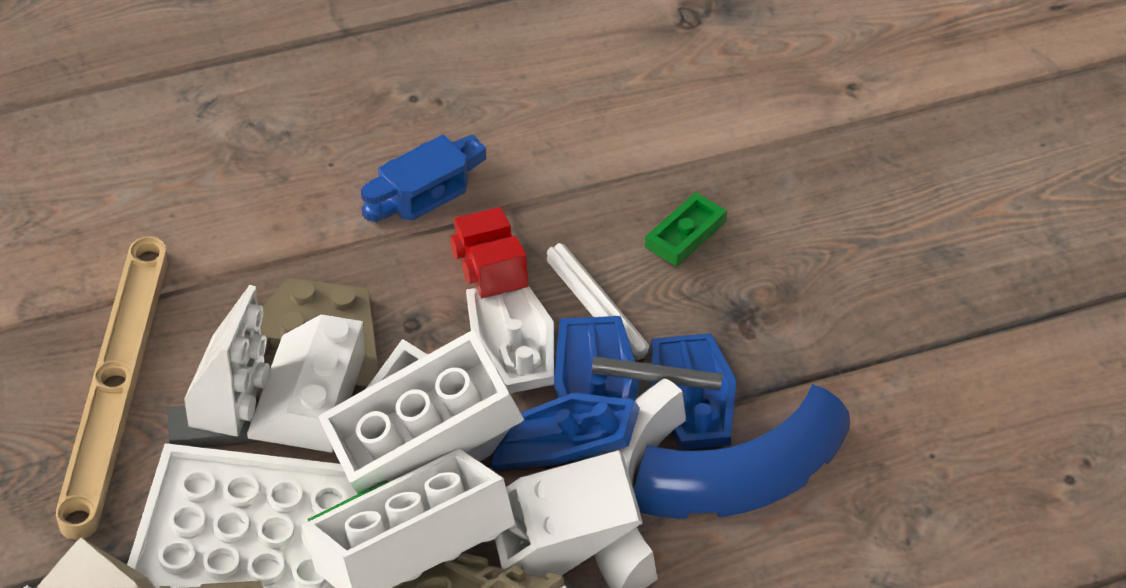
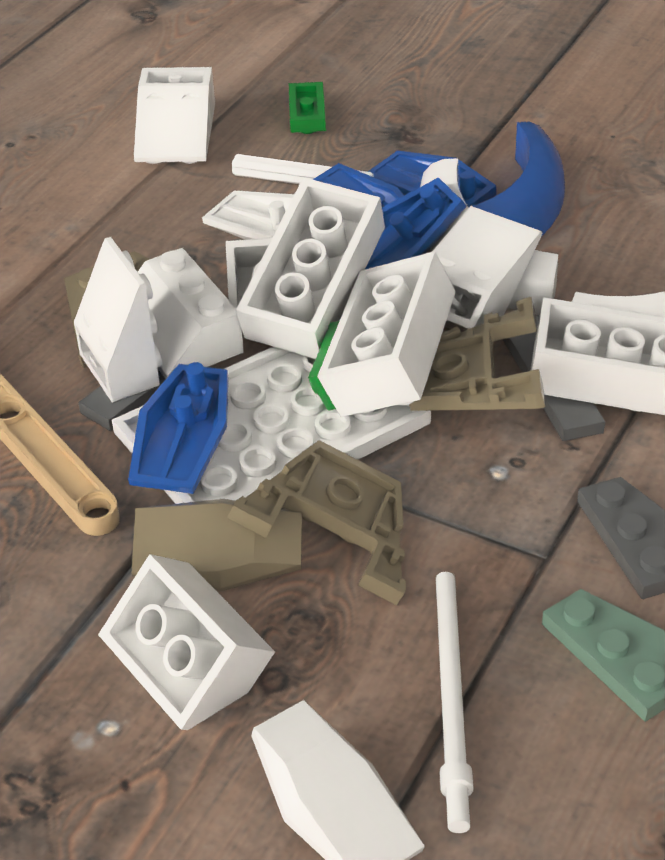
camera: 40 degrees left, 5 degrees down
(191, 489) = (180, 429): none -> blue piece
(422, 178) = (87, 174): blue hinge -> none
(489, 252) = (198, 185): red brick -> none
(555, 163) = (174, 114): none -> white slope
(655, 373) = (408, 173): dark grey piece -> none

